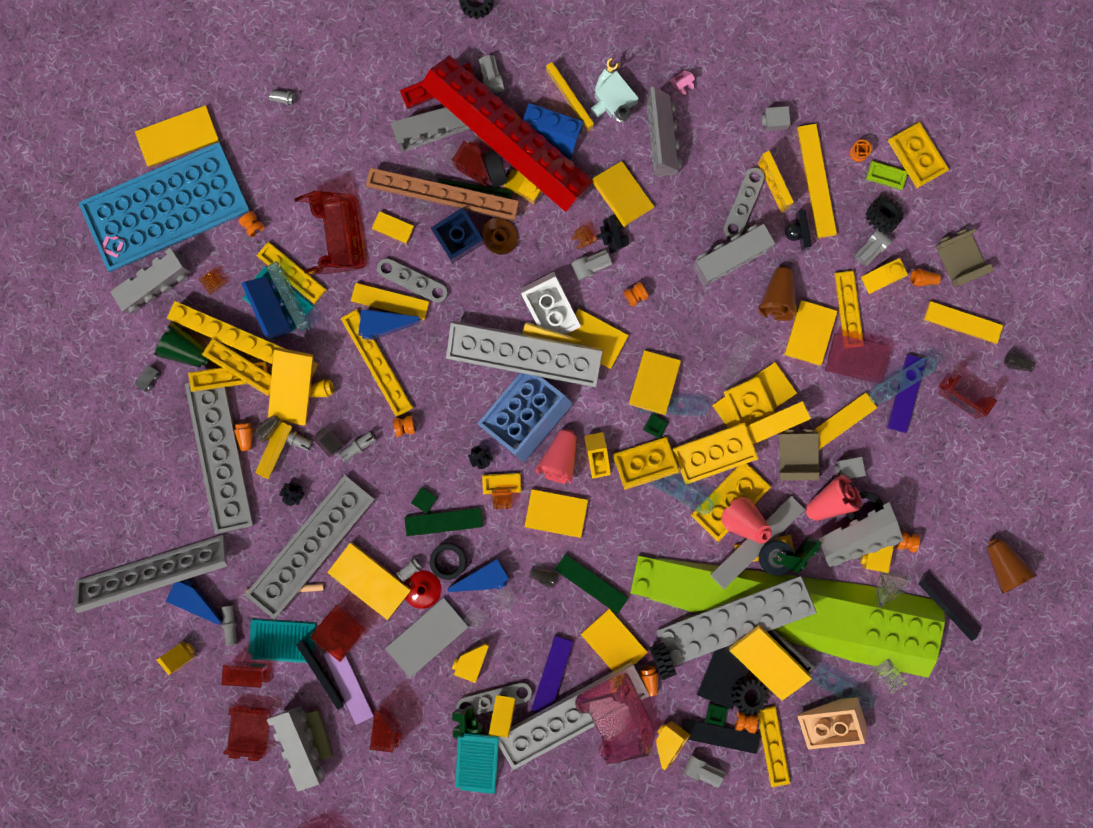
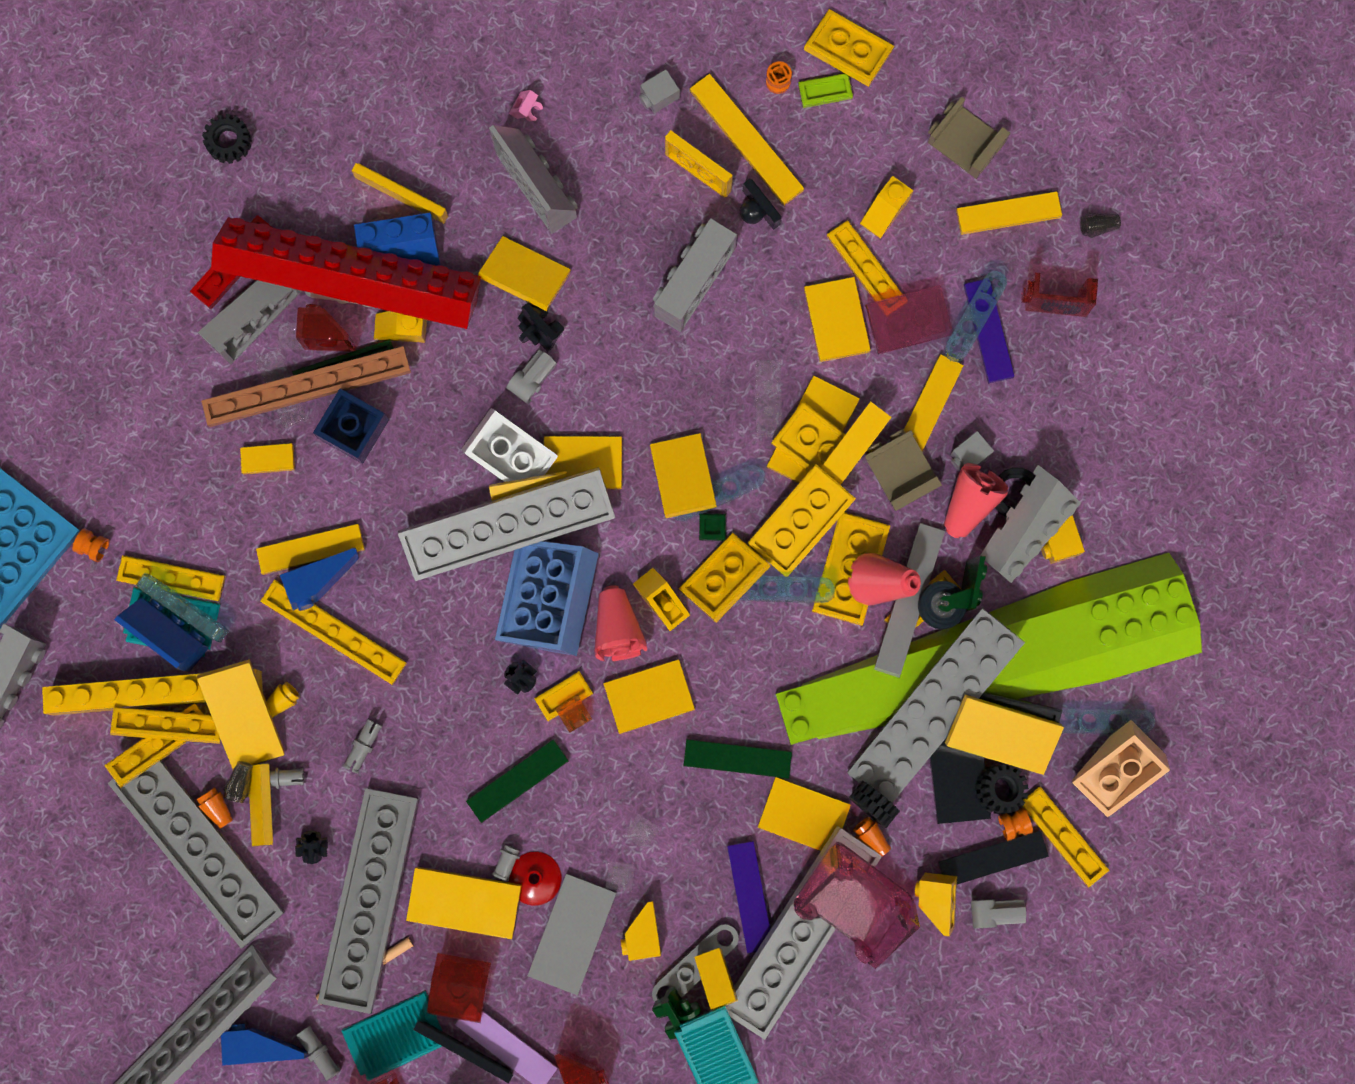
camera: 30 degrees left, 5 degrees down
(147, 378) = (57, 801): flat silver piece -> none
(180, 347) = (79, 740): dark green cone -> none
(212, 281) = (77, 640): clear orange tile -> none
(282, 97) = (57, 371): light grey pin -> none
(329, 441) = (324, 758): clear smoke brick -> none
(342, 231) = (206, 495): clear red windscreen -> none
(408, 424) = (411, 685): orange wheel -> none
(412, 280) = (324, 510): light grey plate -> none
(424, 500) = (479, 767): dark green tile -> none
(433, 561) = (528, 825): black tyre -> none
(486, 578) = (604, 821): blue slope -> none
(490, 73) = (290, 215): light grey piece -> none
(494, 168) = (354, 323): black tyre -> none
(506, 233) = (402, 391): reddish brown dish -> none
(544, 576) = (676, 780): clear smoke cone -> none
(584, 236) = (506, 347): clear orange tile -> none
(613, 94) = (451, 163): light aqua torso -> none
(635, 294) = (604, 383): orange wheel -> none
(716, 714) = (974, 835): dark green tile -> none
(744, 202) = (674, 208): light grey plate -> none
(780, 296) = (776, 295): dark orange cone -> none
(876, 244) = (856, 176): light grey piece -> none
(887, 207) = (847, 136): black tyre -> none
(890, 586) = (1096, 567): clear slope -> none
(890, 676) = (1155, 674): clear brick -> none
(910, 542) = (1090, 502): orange wheel -> none
(924, 278) = (933, 185): orange cone -> none
(949, 606) = (1179, 553): black tile -> none
(1008, 565) = (1221, 467): dark orange cone -> none

